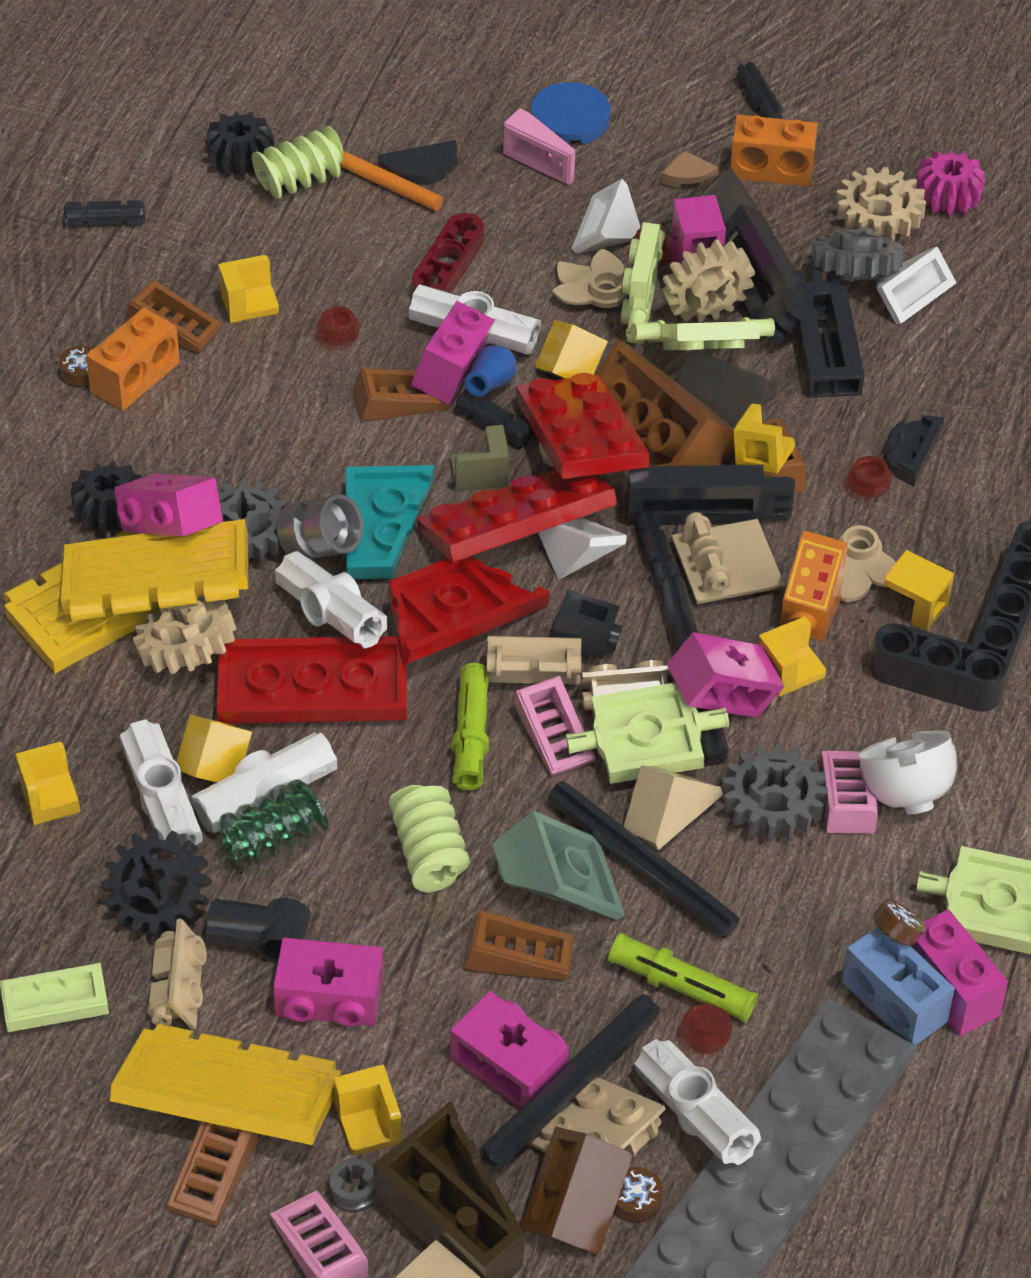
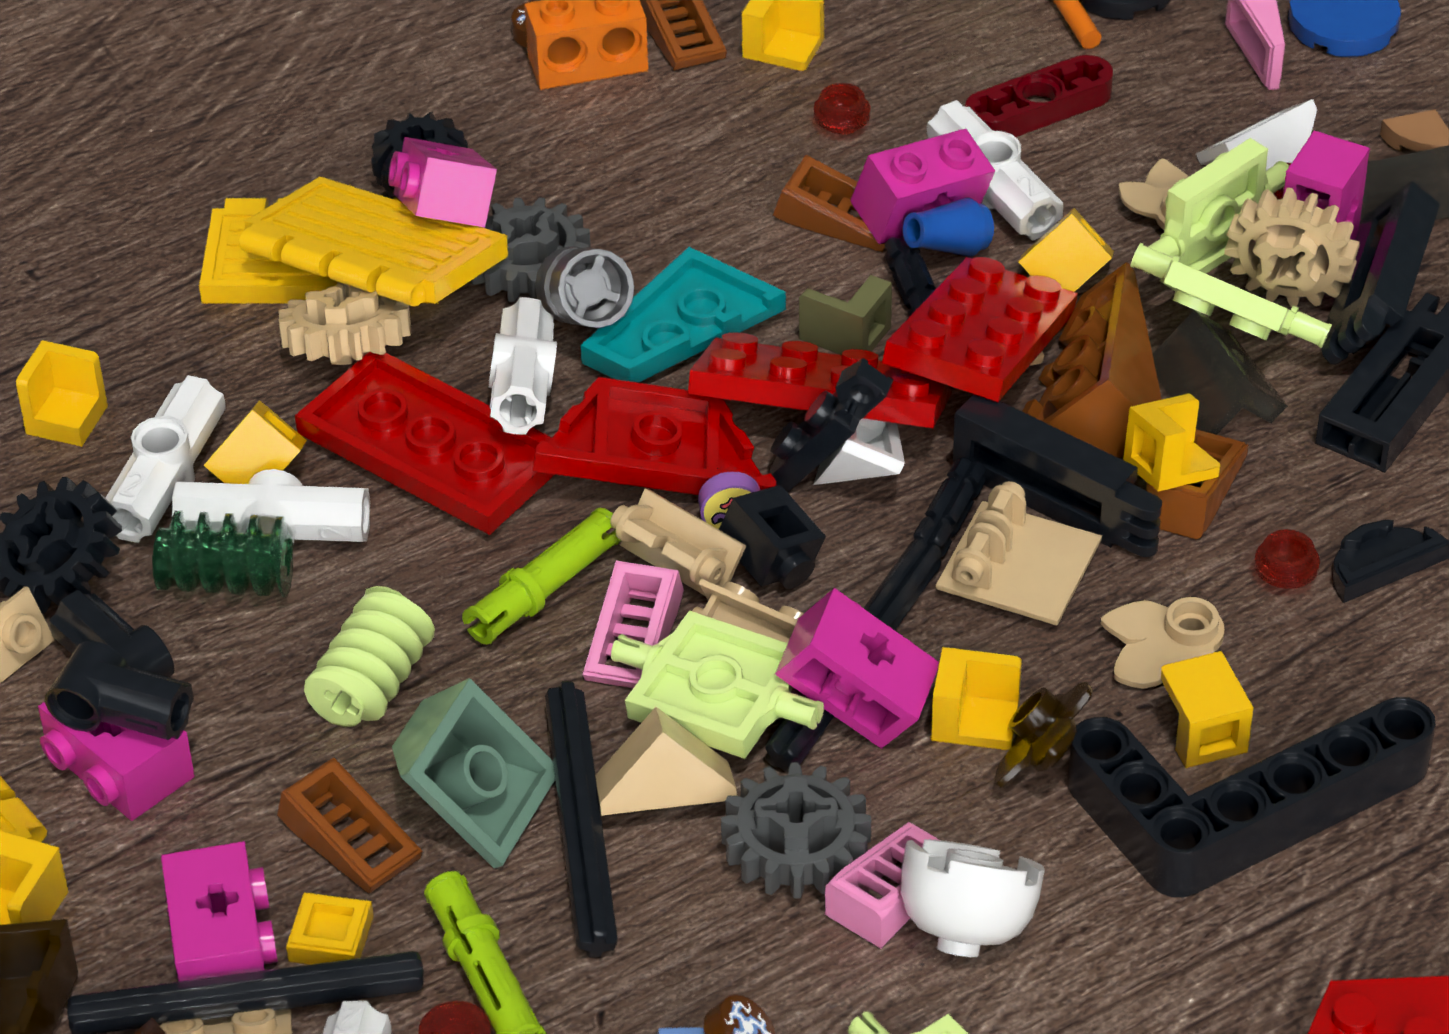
camera: 40 degrees right, 5 degrees down
(317, 951) = (104, 688): none -> black piece
(536, 616) = (718, 493): none -> tile
(563, 536) = (827, 423): none -> black hinge
(570, 1014) = (329, 929): none -> yellow tile
(815, 583) = (1069, 629): orange slope -> none
(852, 653) = (1043, 731): none -> dark brown plate

